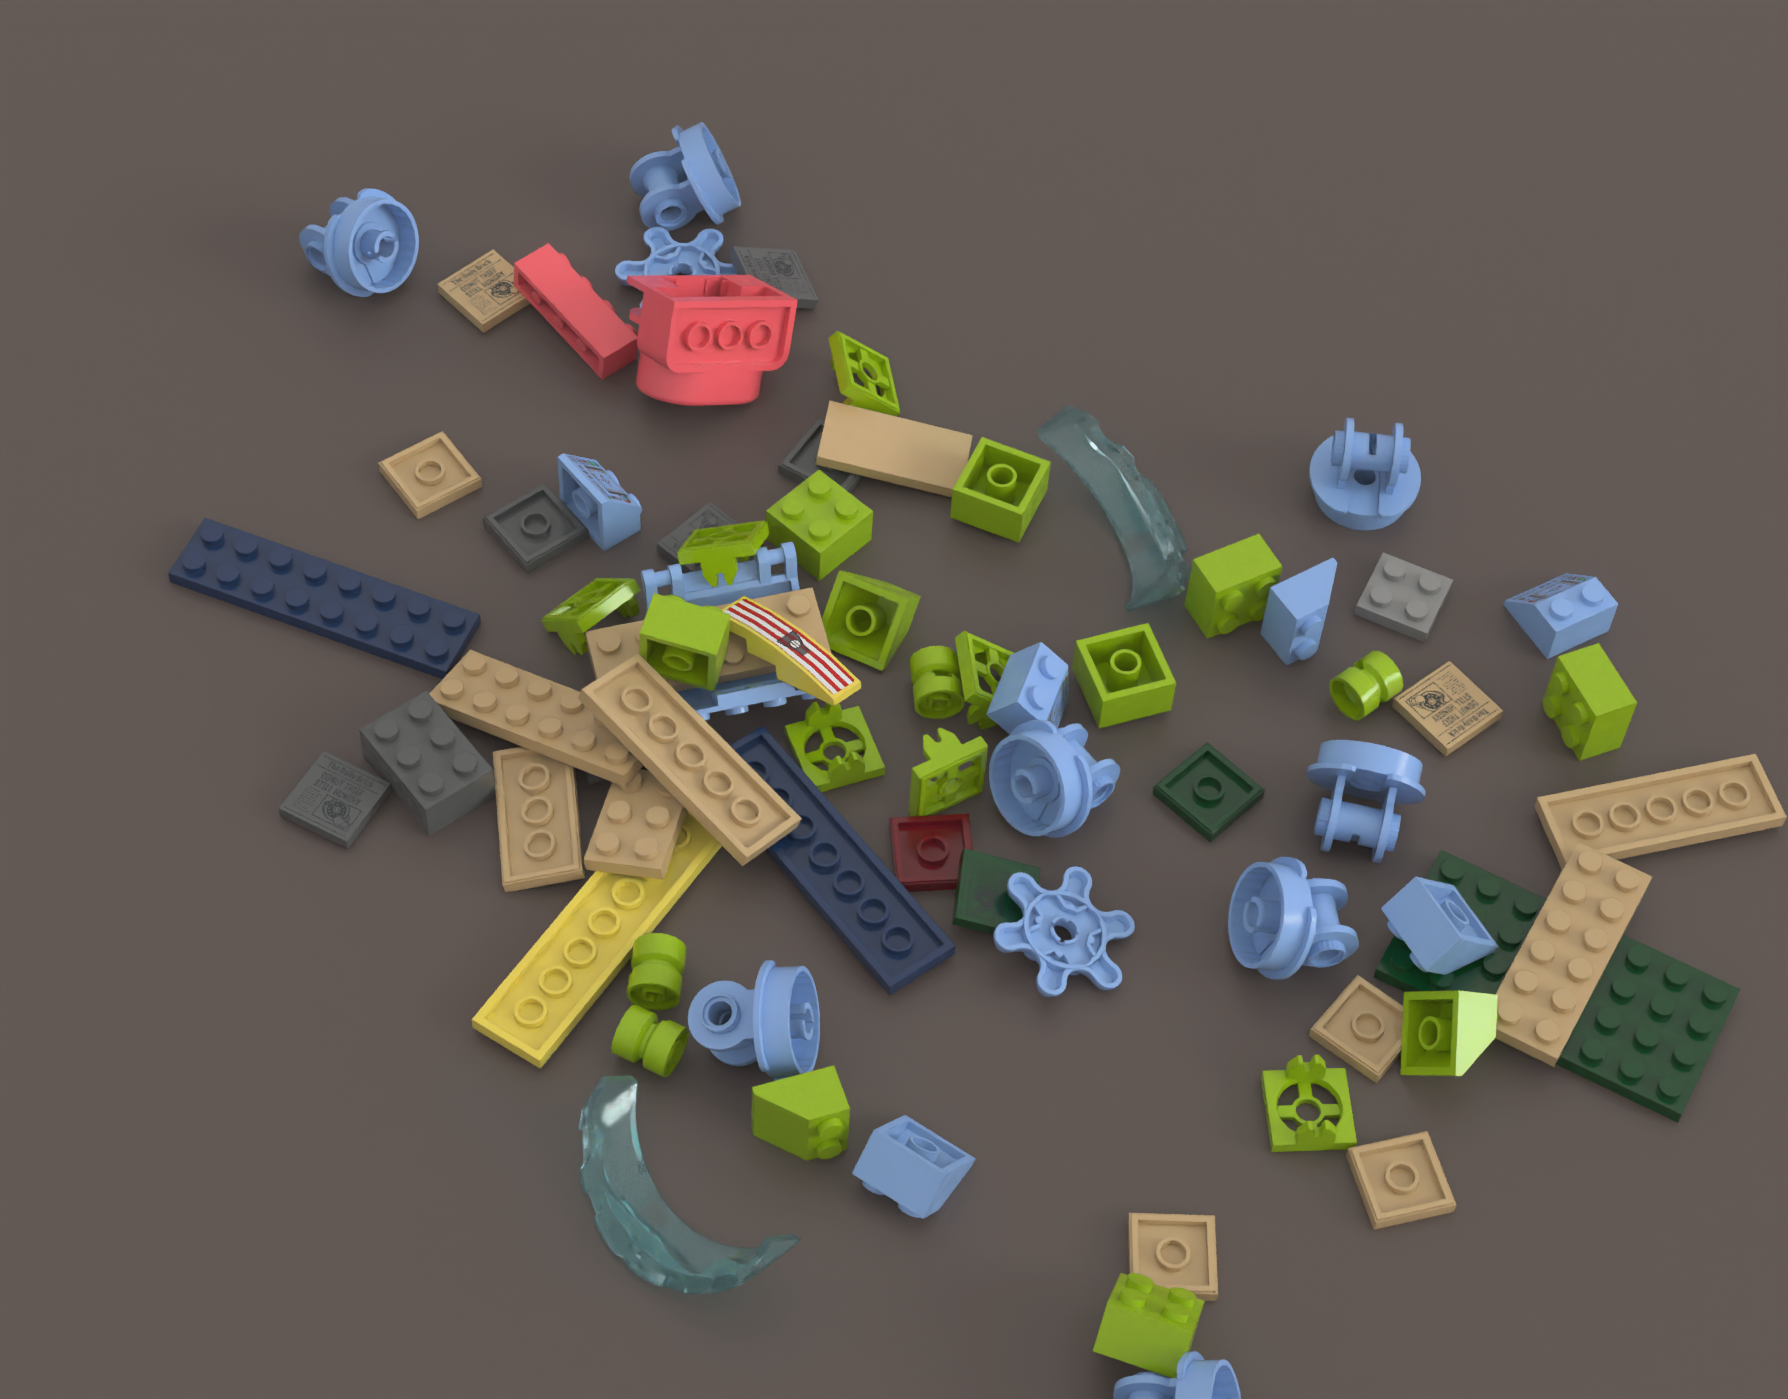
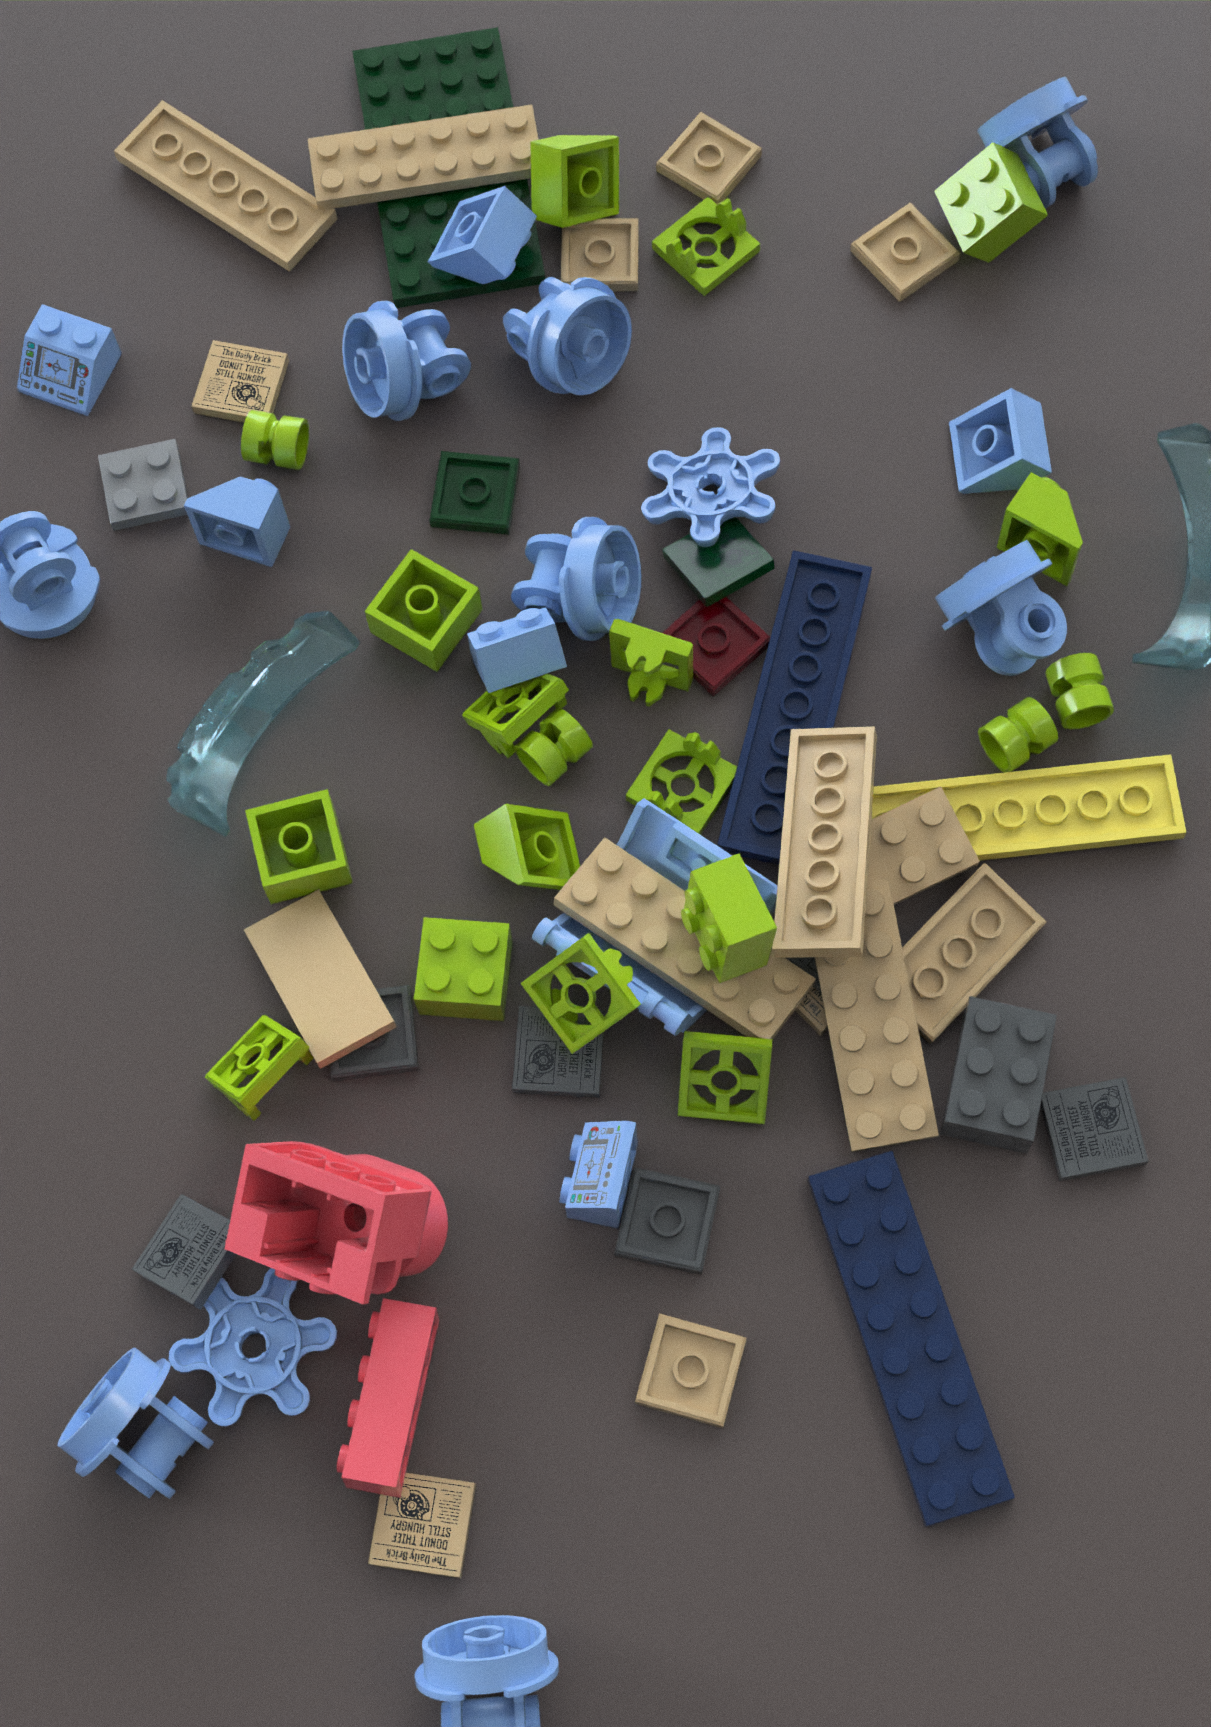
camera: 120 degrees left, 15 degrees up
(795, 654) = (654, 841): slope -> none
(1231, 585) = (258, 586): lime brick -> none
(1589, 702) = (164, 271): lime brick -> none

